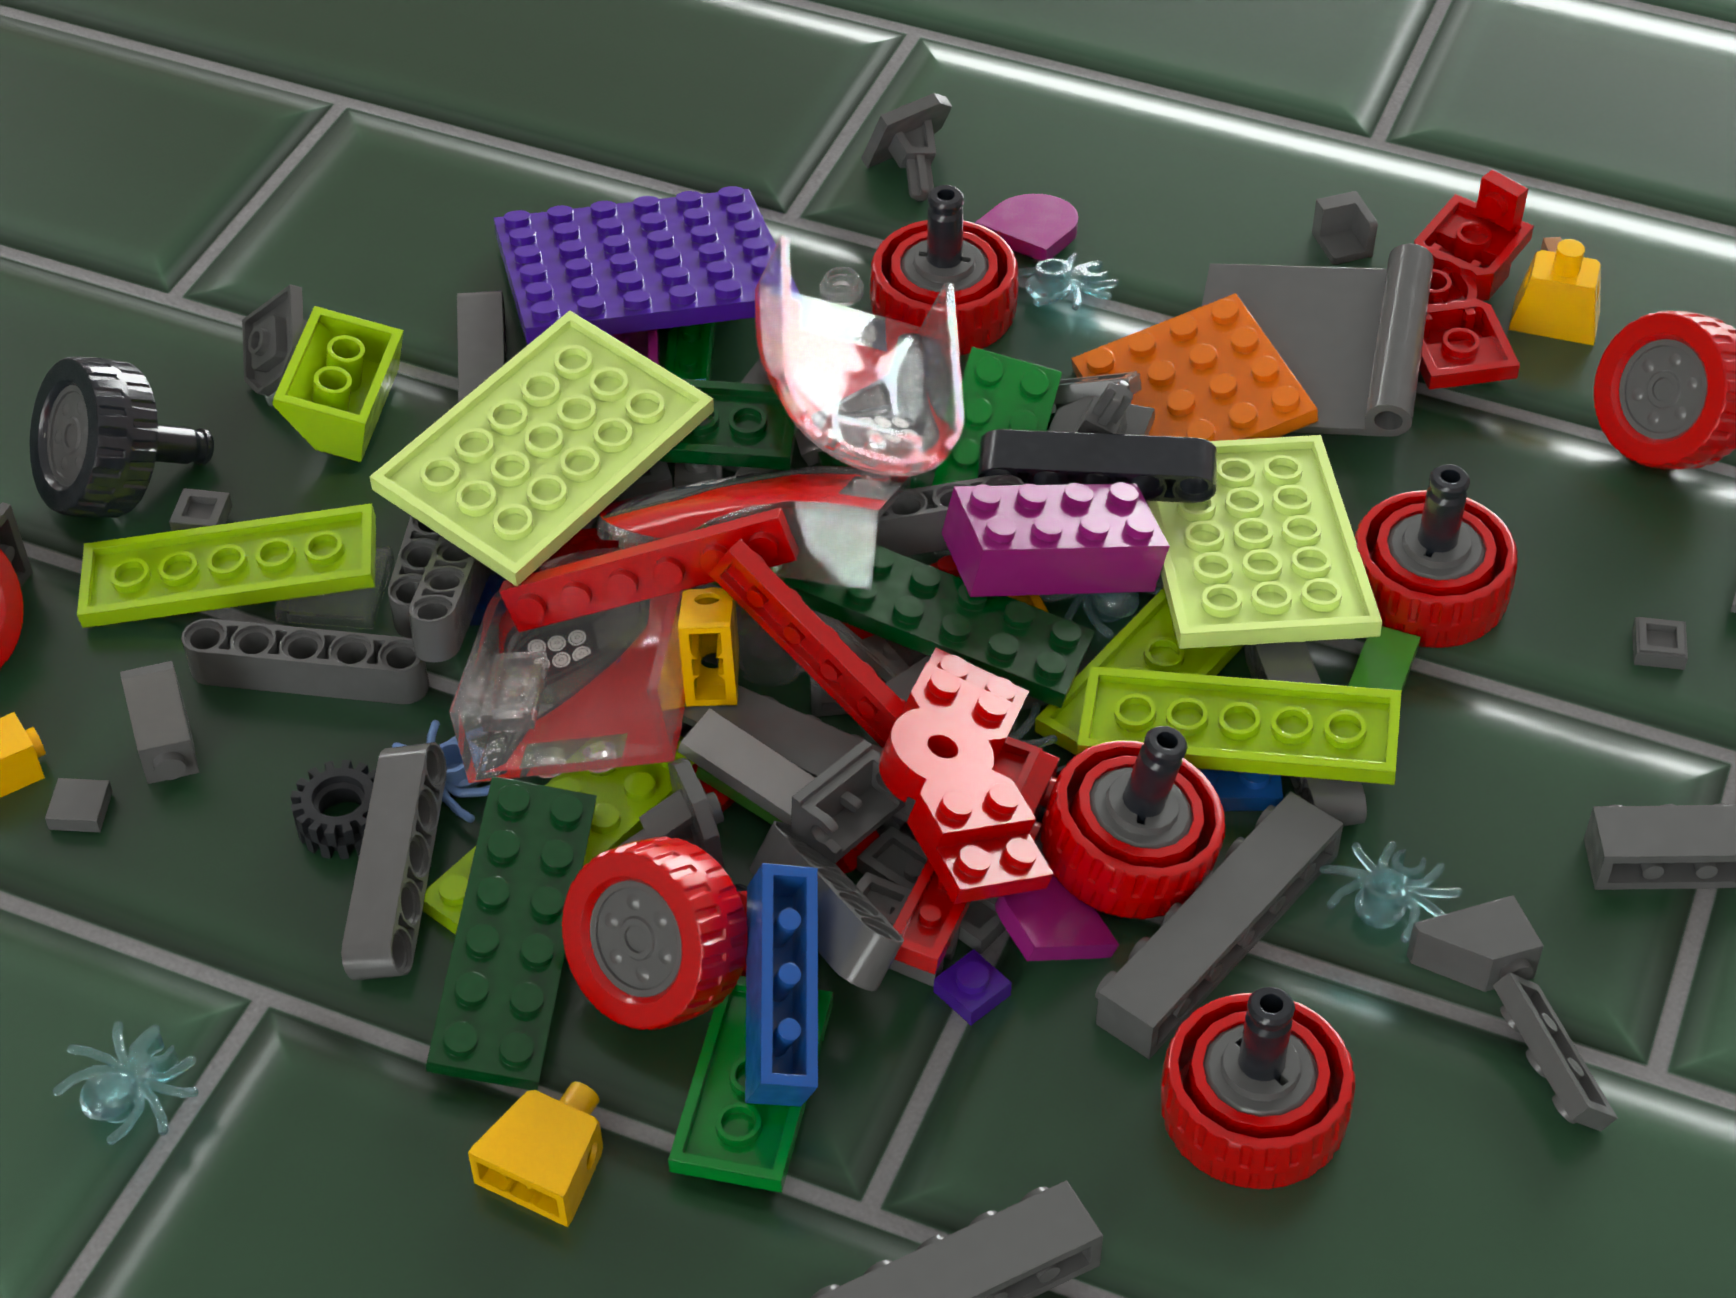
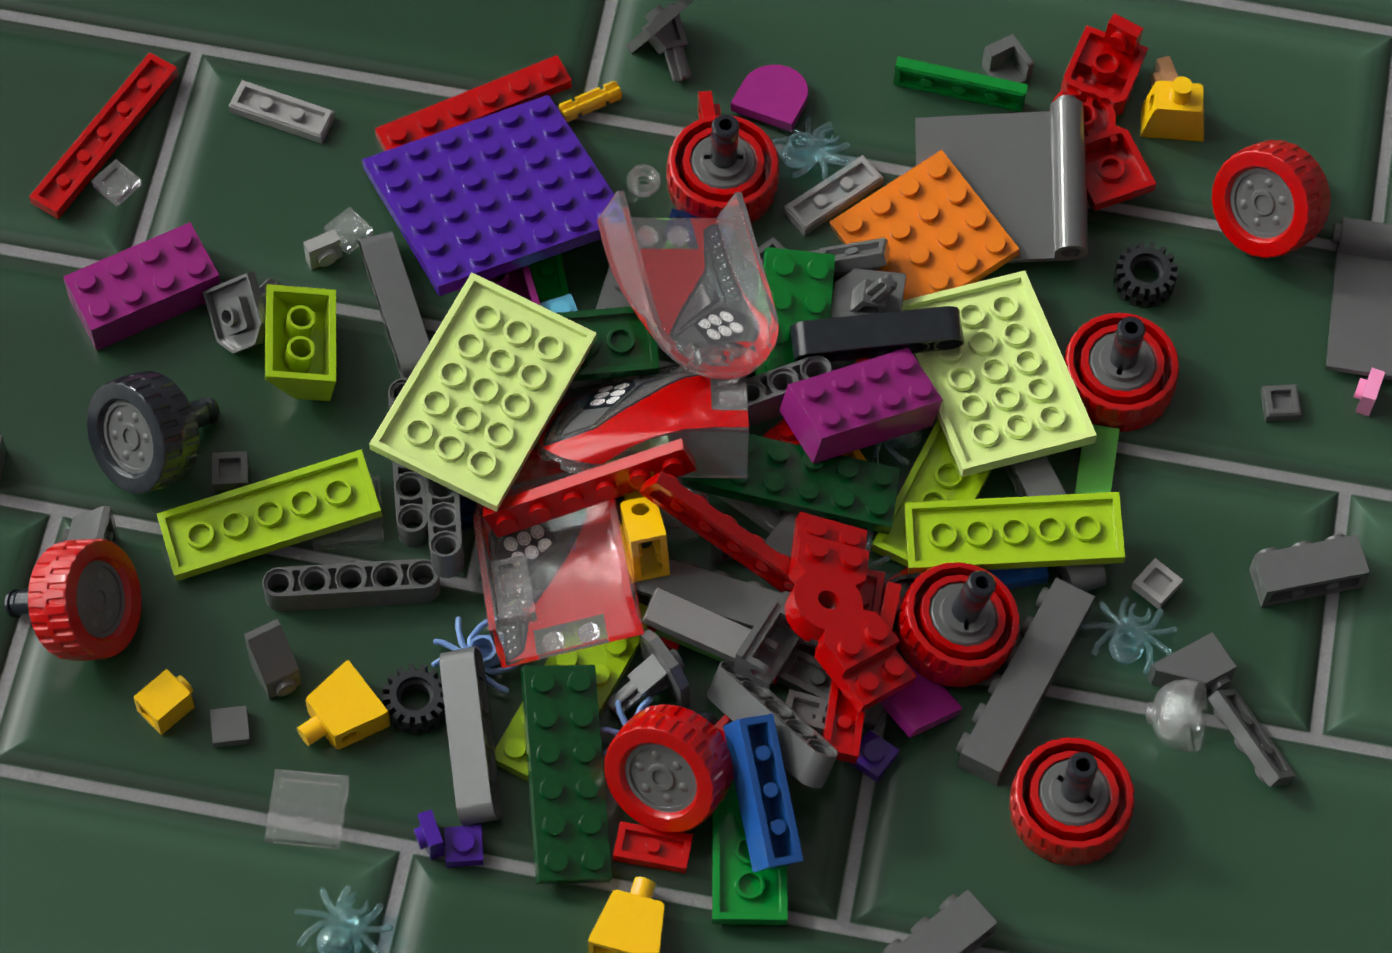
camera: 15 degrees left, 15 degrees up
(141, 922) = (307, 808): none -> clear tile
(169, 304) = (141, 285): none -> magenta brick
(189, 207) = (116, 182): none -> clear plate
(192, 162) = (103, 135): none -> red plate
(235, 805) = (343, 710): none -> yellow torso
(294, 979) = (428, 835): none -> dark purple plate
(342, 1006) = (463, 846): none -> dark purple plate
(411, 301) = (323, 249): none -> light grey plate
(418, 168) = (281, 111): none -> light grey tile
(444, 287) = (350, 229): none -> clear plate
(611, 1051) = (652, 848): none -> red plate
(754, 172) = (503, 93): none -> red plate
(800, 203) = (590, 101): none -> yellow axle
(1059, 342) = (833, 195): none -> light grey tile
(1272, 236) = (960, 84): none -> green tile
(1441, 830) = (1157, 583): none -> light grey plate
(1444, 999) = (1178, 714): none -> clear cylinder
(1498, 453) = (1149, 258): none -> black tyre

